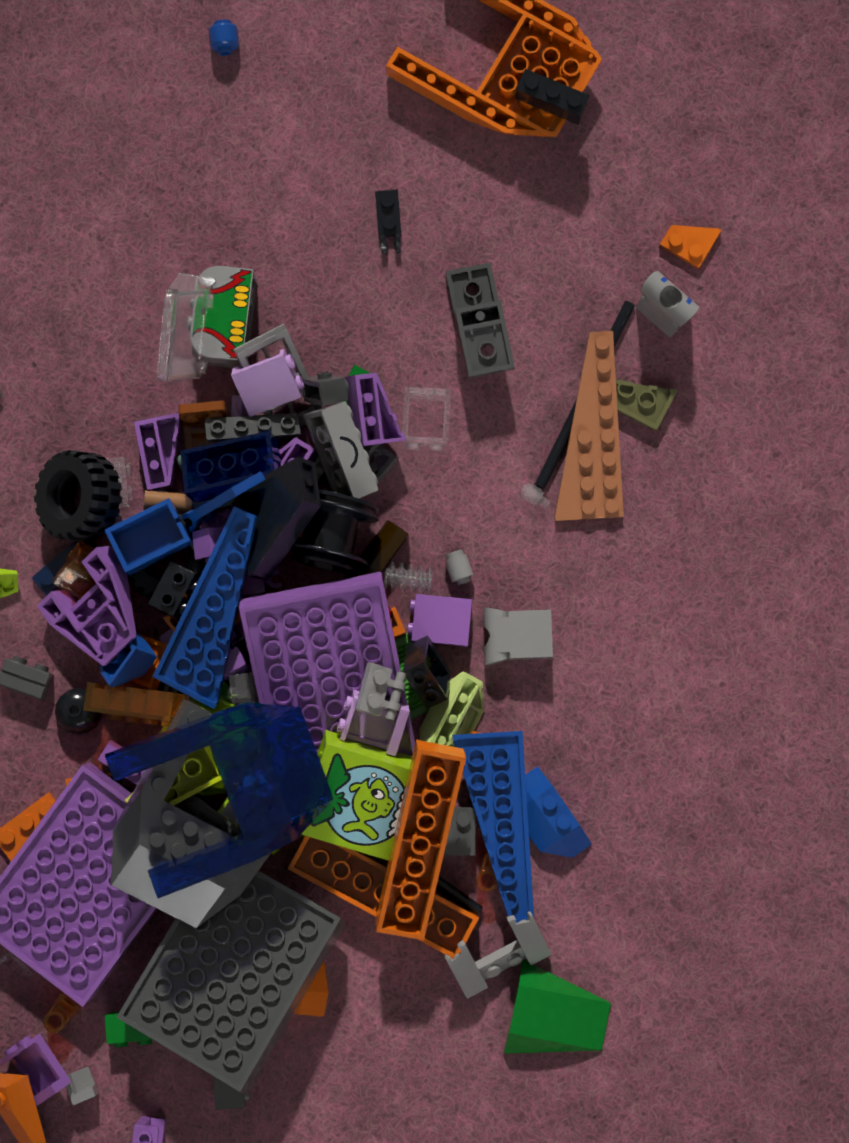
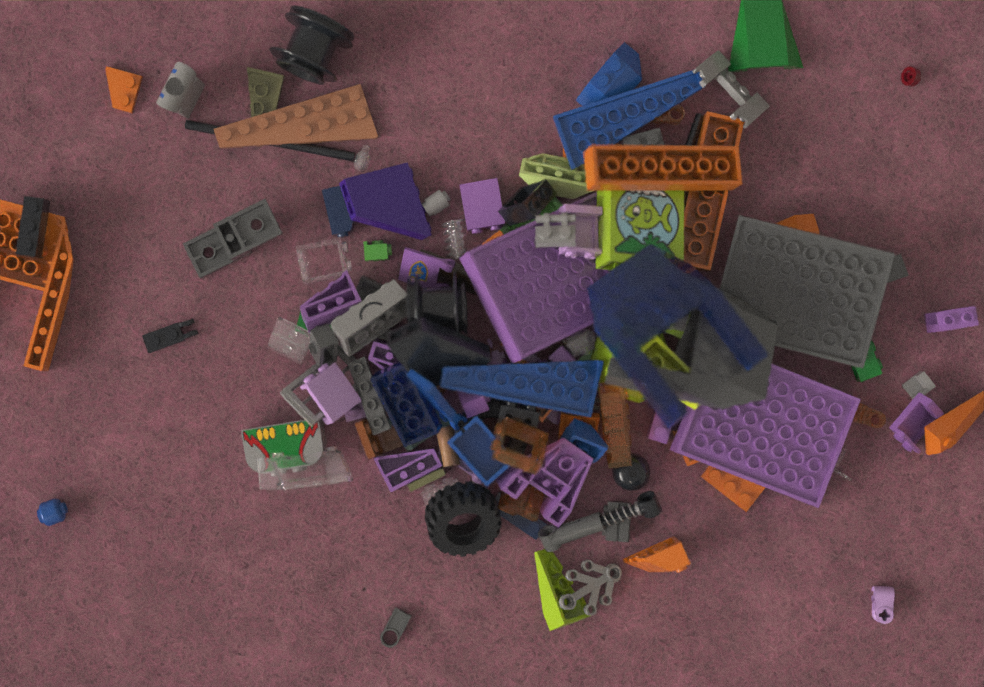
camera: 105 degrees left, 5 degrees up
(27, 597) = (554, 537): none -> piece
(136, 468) = (427, 479): none -> olive tile
(155, 589) = (524, 433): none -> clear orange window
(344, 354) = (289, 340): none -> clear slope
(384, 533) = (425, 265): none -> medium lavender flag
(420, 483) = (377, 251): none -> bright green brick
(475, 509) = (387, 201): none -> dark purple slope
(482, 456) = (337, 212): none -> dark blue slope
(517, 635) = (477, 141): light grey piece -> none
(679, 469) = (312, 45): none -> black wheel

